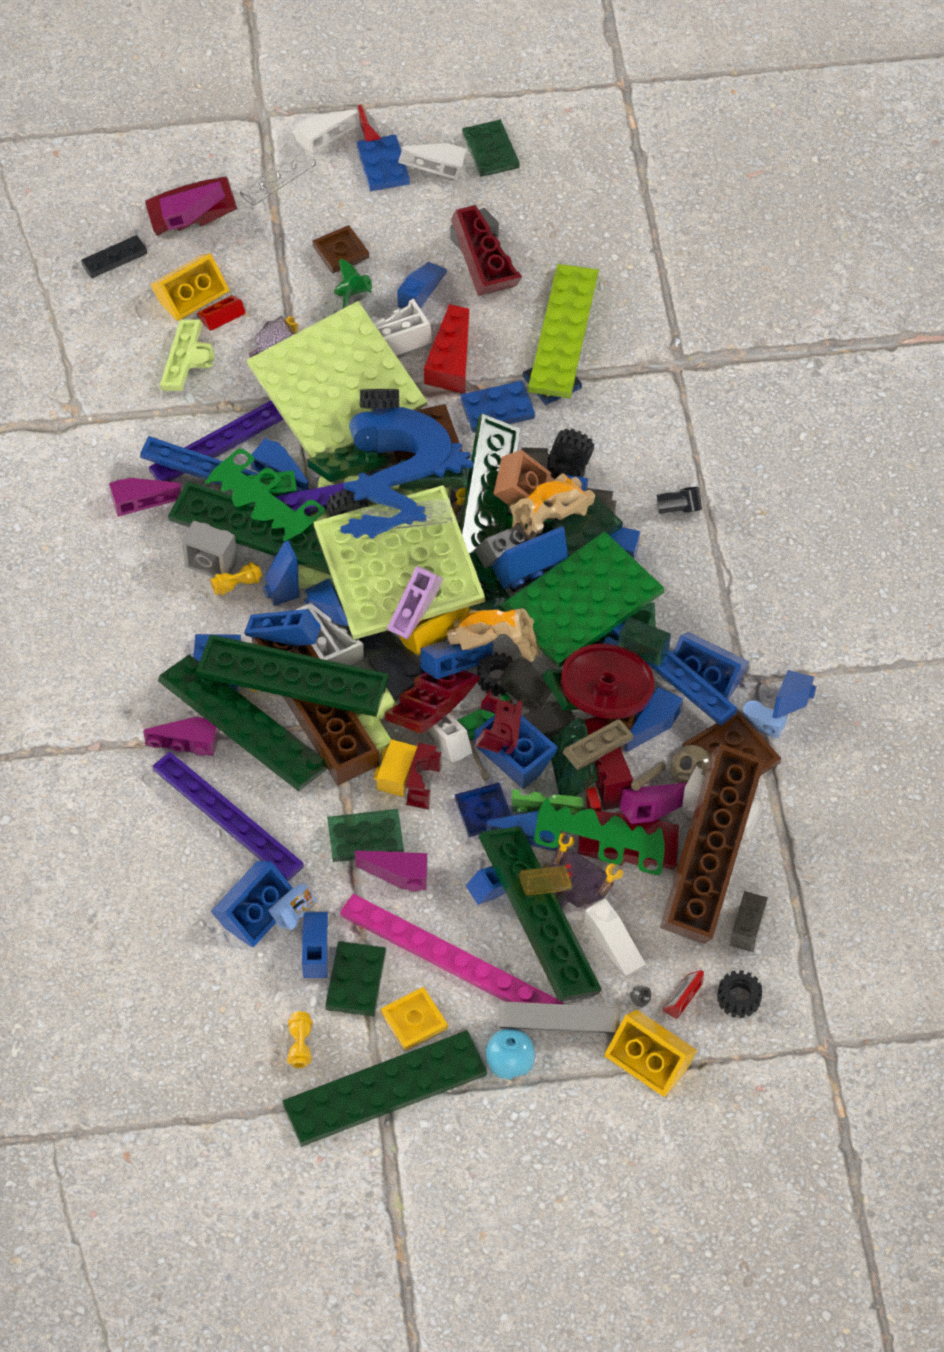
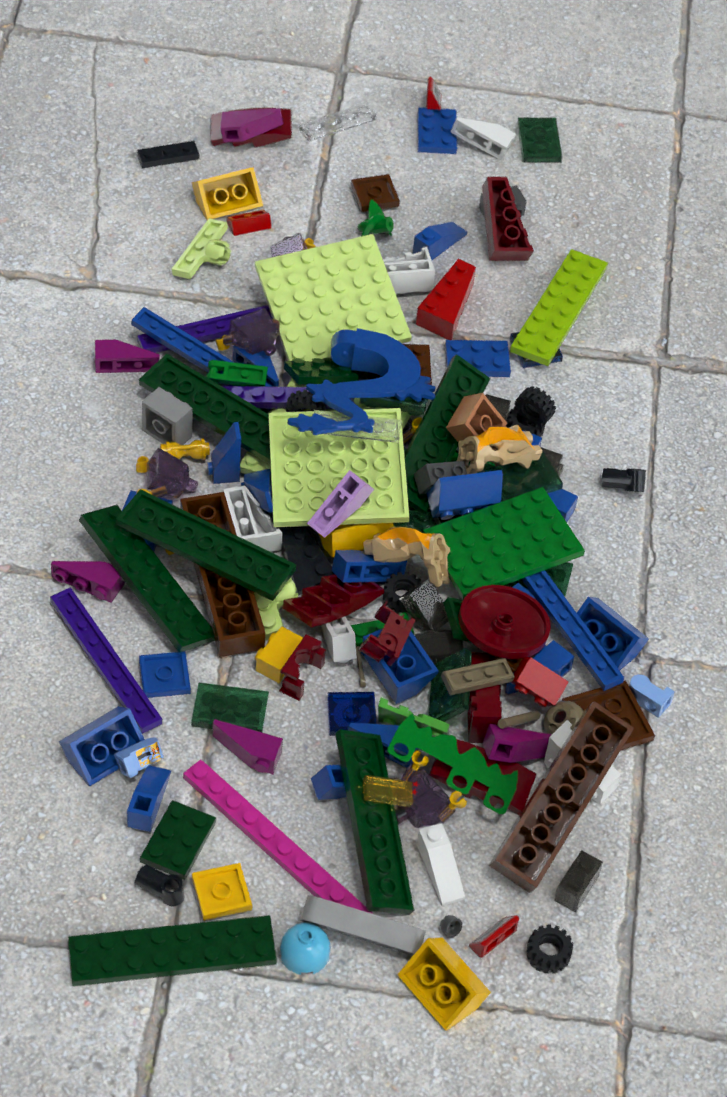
camera: 10 degrees right, 5 degrees down
(227, 610) = (165, 475): none -> clear purple torso
(253, 490) = (232, 390): green piece -> none
(268, 437) = (252, 333): none -> clear purple torso
(284, 627) = (214, 500): blue slope -> none
(290, 816) = (164, 674): none -> blue tile
(300, 1029) = (108, 872): yellow piece -> none
(322, 129) = (393, 90): white slope -> none
(352, 1026) = (160, 884): none -> black piece
(379, 398) = (365, 321): black tyre -> none
(592, 799) = (459, 728): red tile -> none
(645, 641) = (551, 593): clear green brick -> none
(657, 734) = (539, 682): none -> brick
(794, 693) = (683, 677): blue slope -> none

